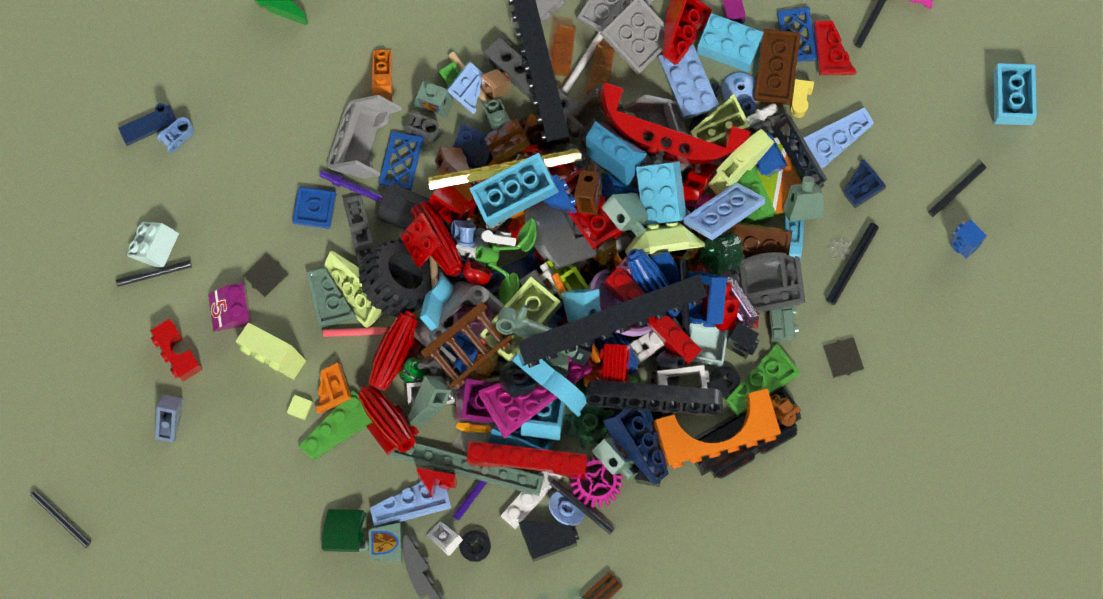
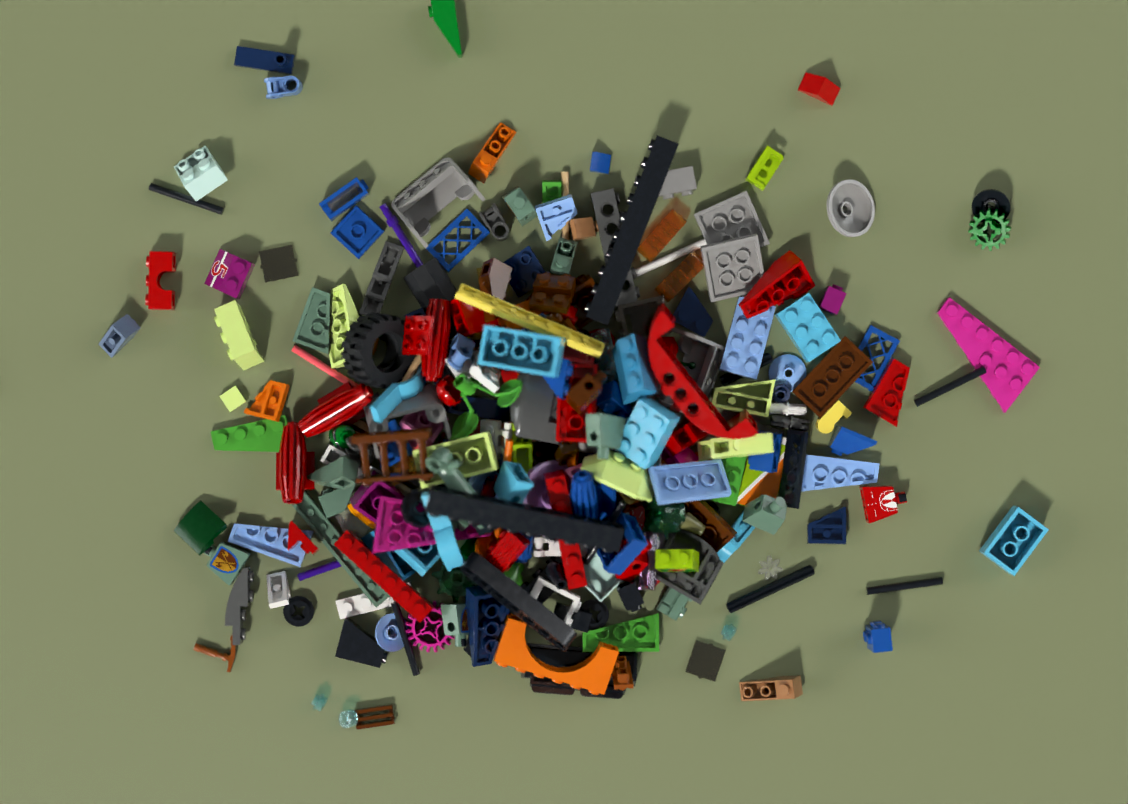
camera: 40 degrees right, 15 degrees up
(285, 187) = (344, 198): none -> blue window
(444, 429) = (336, 500): none -> sand green slope
(474, 29) = (600, 162): none -> blue slope
(631, 89) = (692, 314): none -> dark blue wing
(752, 248) = (692, 524): none -> olive cone
(760, 280) = (677, 560): none -> lime brick
(827, 103) = (848, 441): none -> blue slope
(845, 319) = (728, 632): none -> clear light blue plate
(887, 136) = (880, 502): none -> red torso
(913, 341) = (771, 688): none -> medium nougat slope

